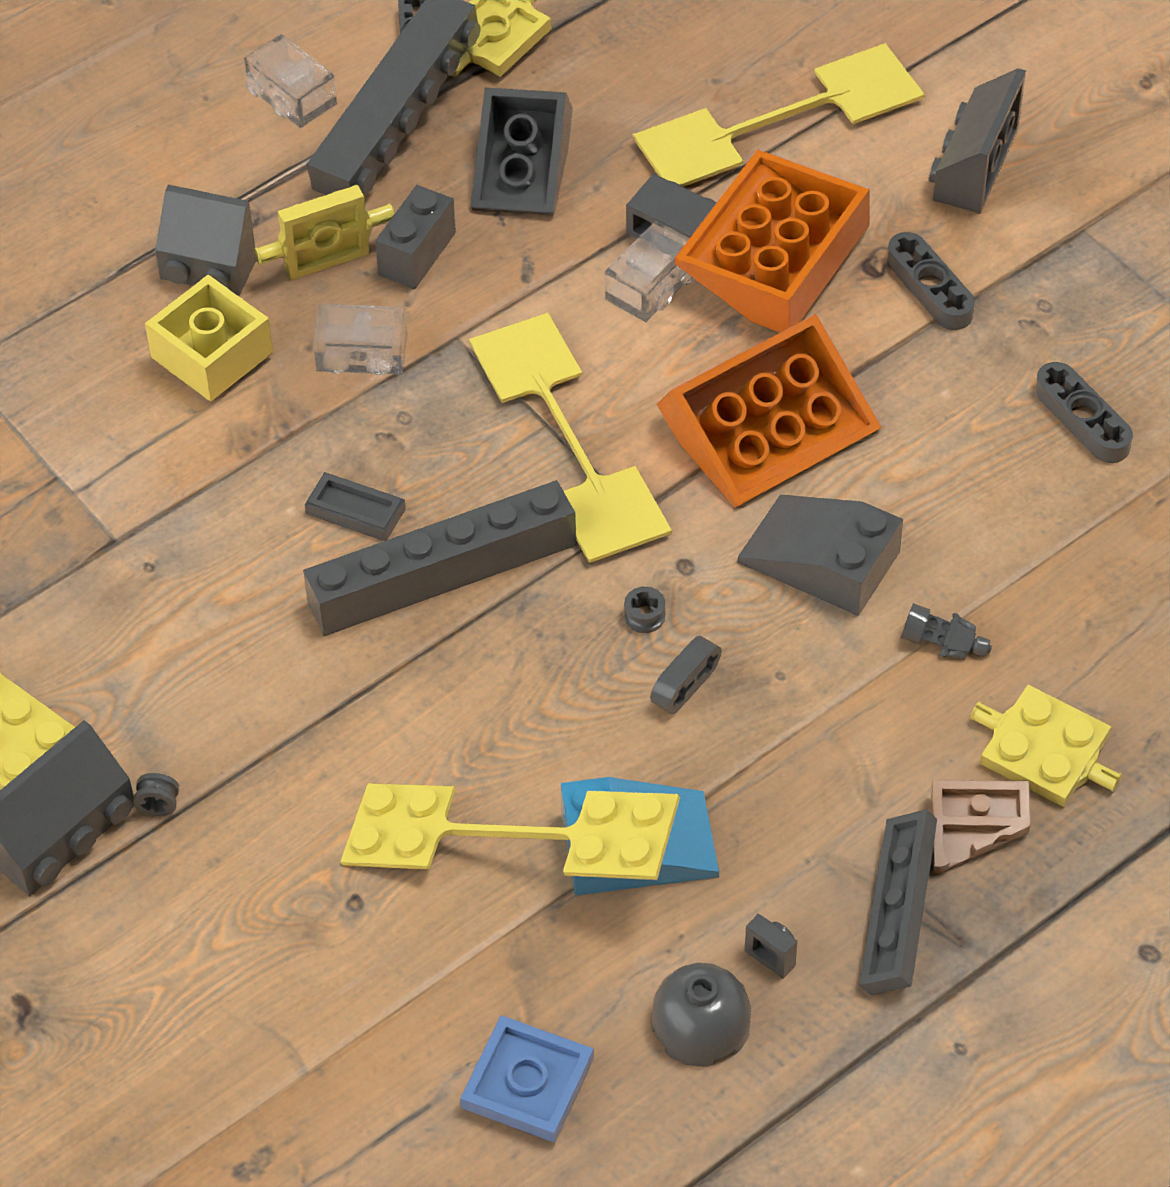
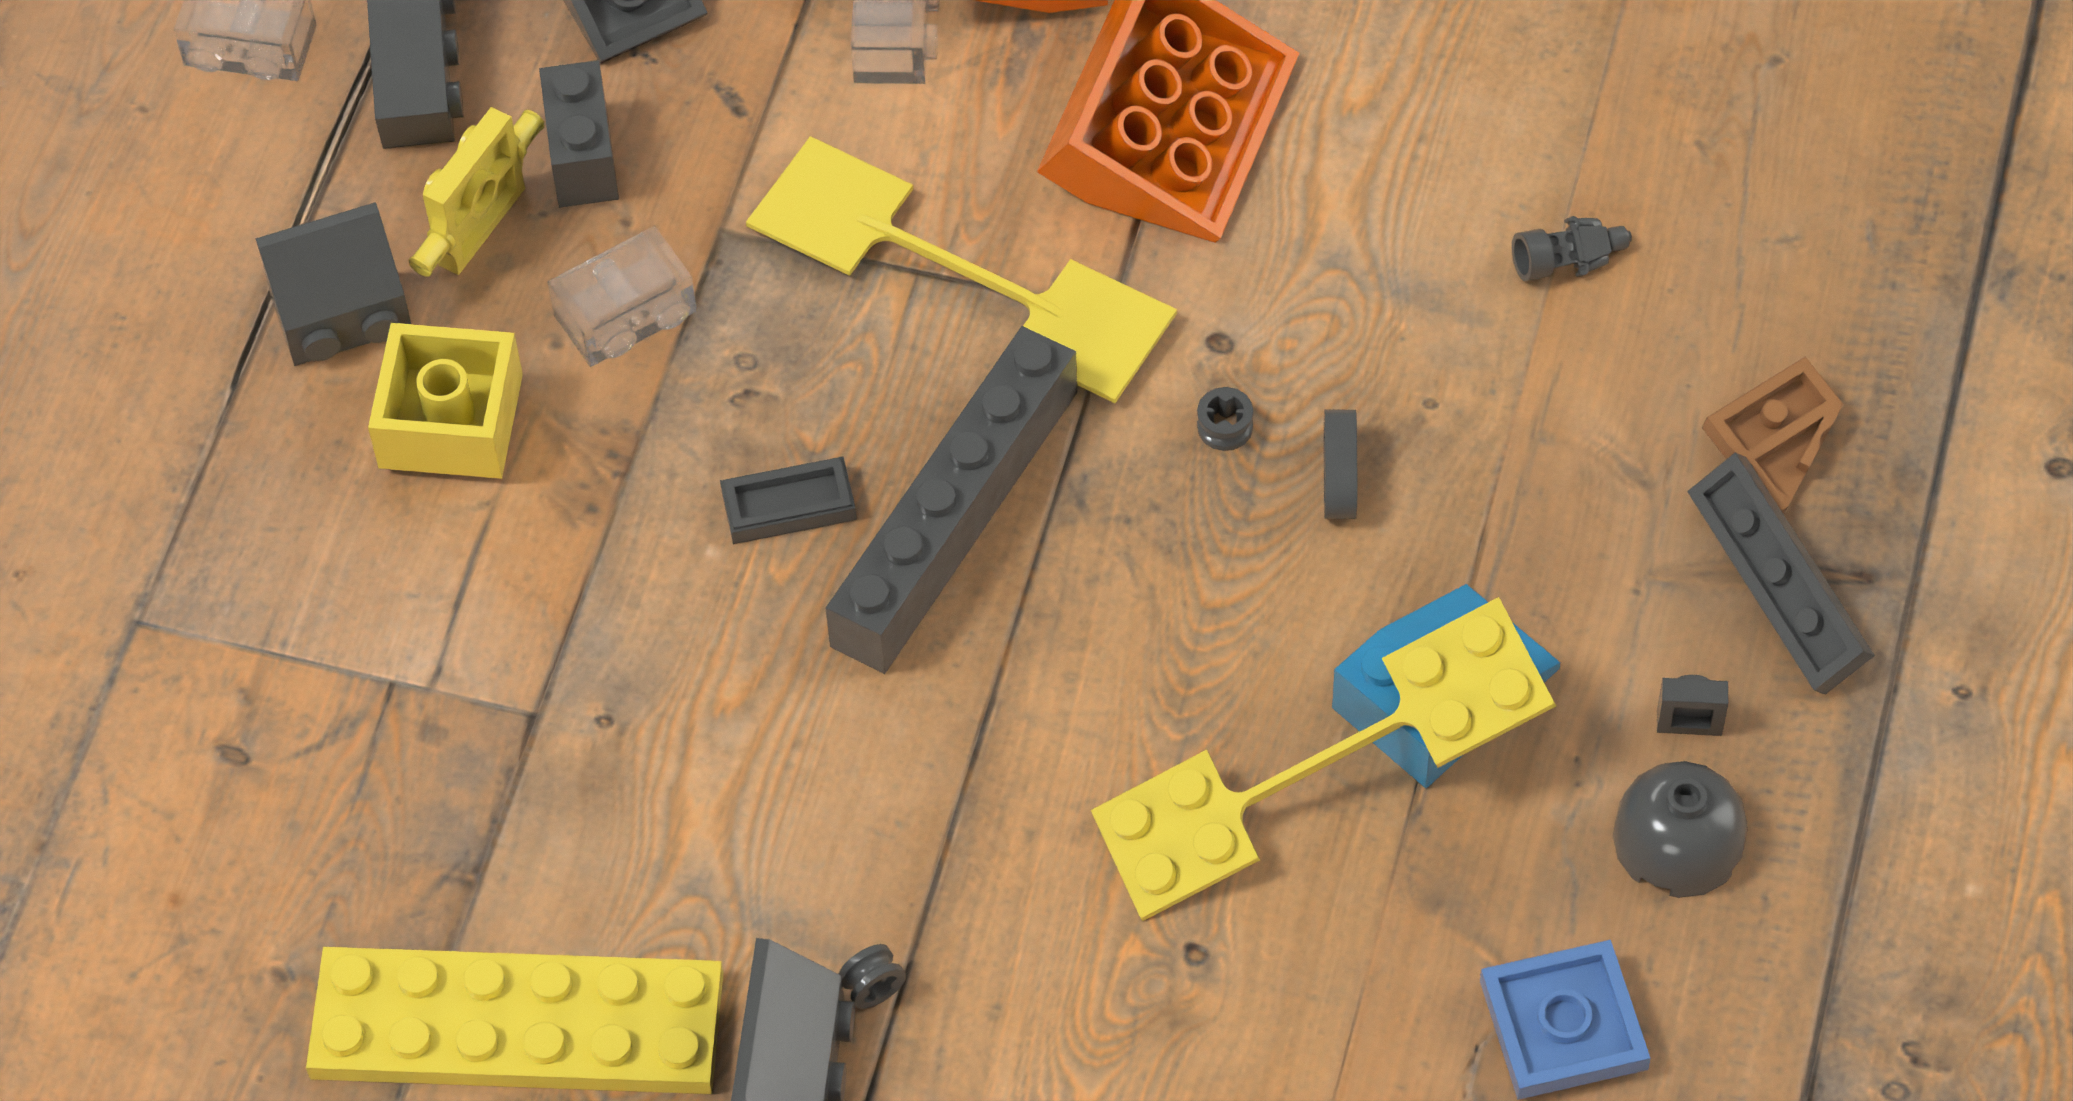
camera: 35 degrees left, 5 degrees up
(826, 548) = (1361, 227): dark grey slope -> none
(1046, 745) = (1777, 307): light yellow plate -> none

